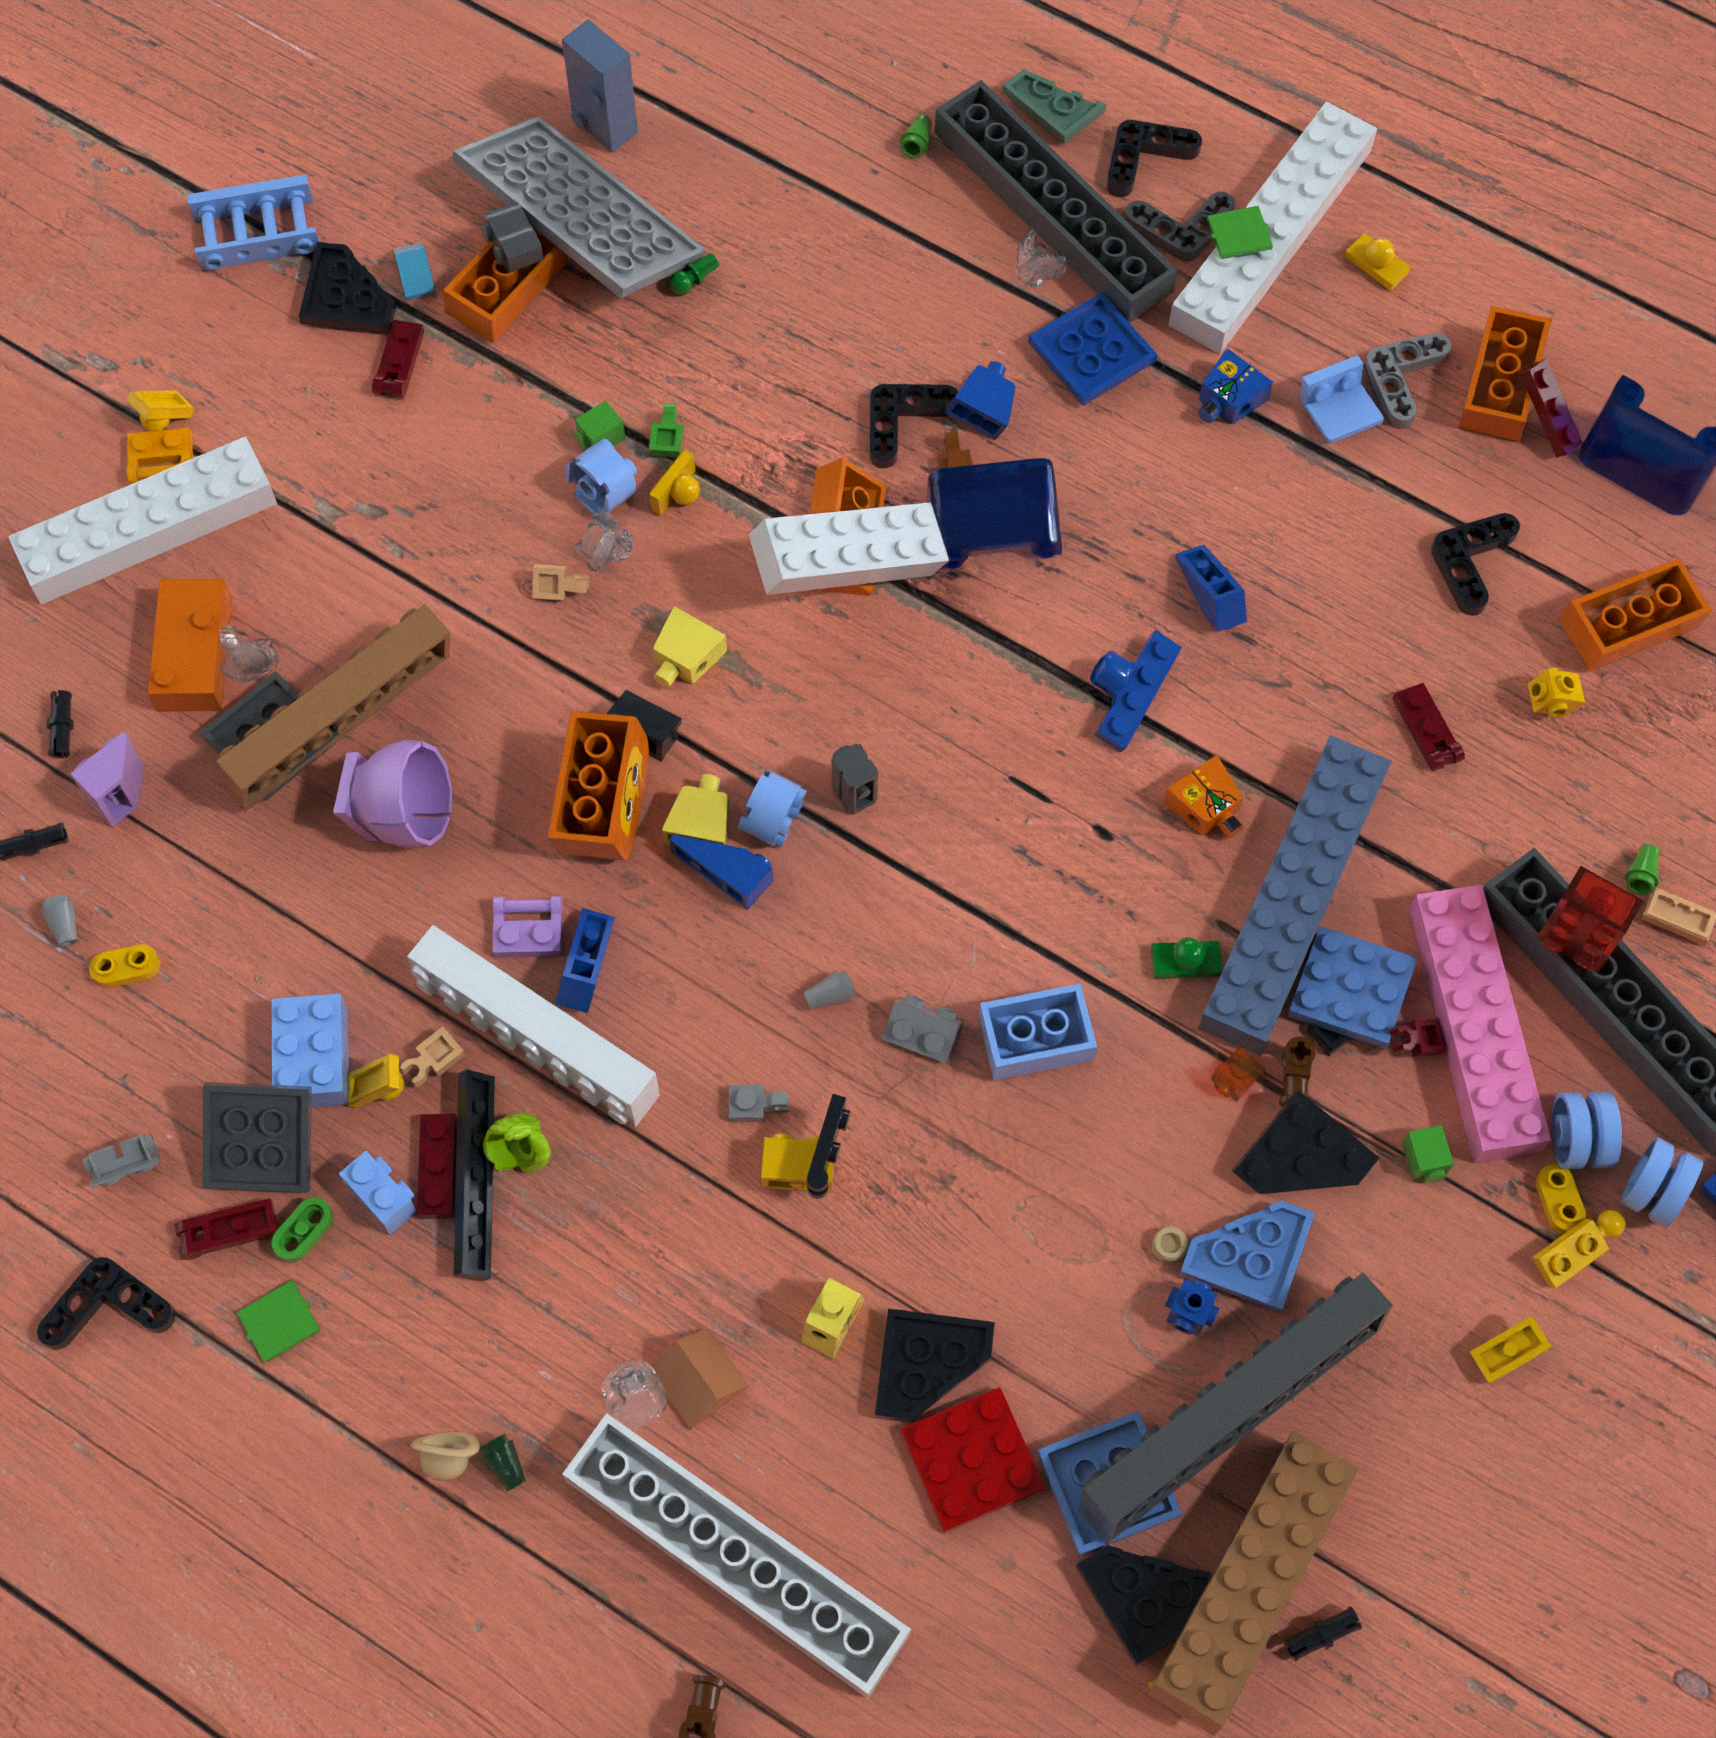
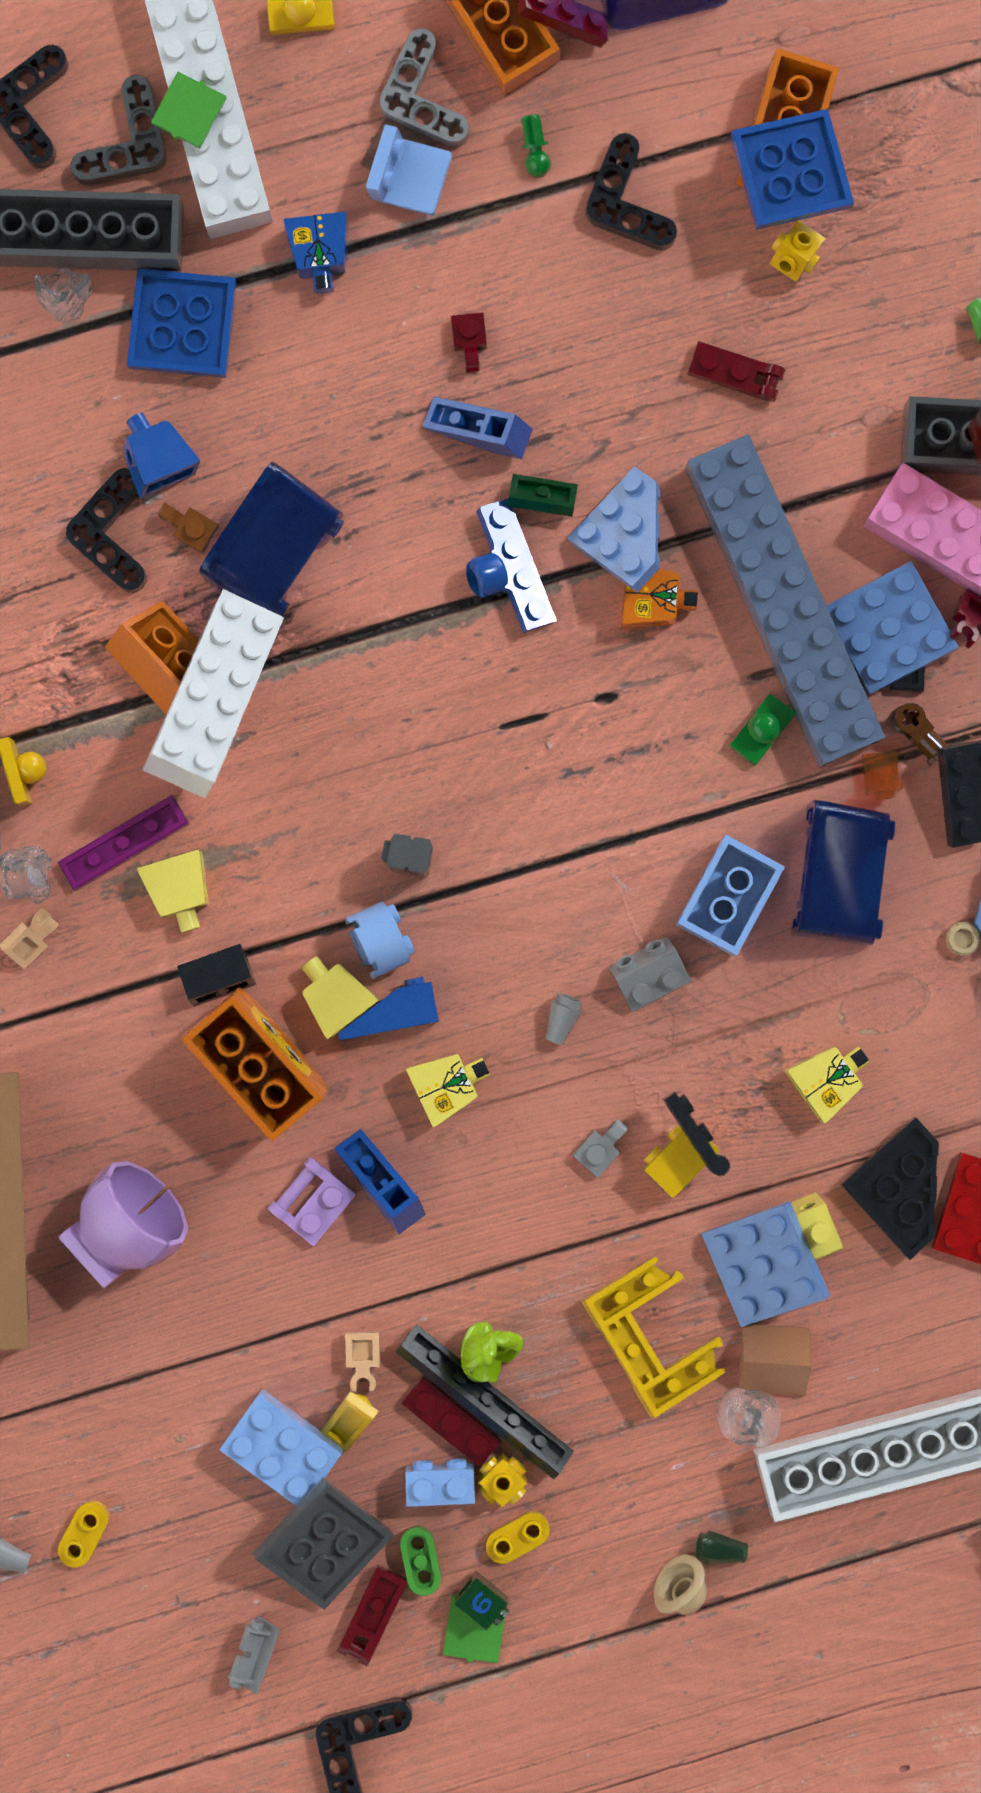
camera: 50 degrees left, 20 degrees up
(306, 1300) = (482, 1601): none -> dark green brick
(381, 1291) = (516, 1536): none -> yellow plate
(428, 1245) = (498, 1468): none -> yellow brick
(534, 1027) = (406, 1269): white brick -> none
(597, 1297) = (654, 1385): none -> yellow wedge
(686, 593) = (123, 843): none -> magenta tile
(701, 947) = (446, 1085): none -> light yellow torso
(770, 1295) = (765, 1264): none -> medium blue plate
(962, 1228) = (828, 1080): none -> light yellow torso
(1130, 1100) = (843, 873): none -> clear blue windscreen
(1206, 666) = (542, 495): none -> dark green plate
(1234, 736) = (624, 530): none -> medium blue plate
(1268, 532) = (469, 336): none -> dark red plate
(1437, 481) = (537, 162): none -> green axle
(1606, 630) = (792, 169): none -> blue plate

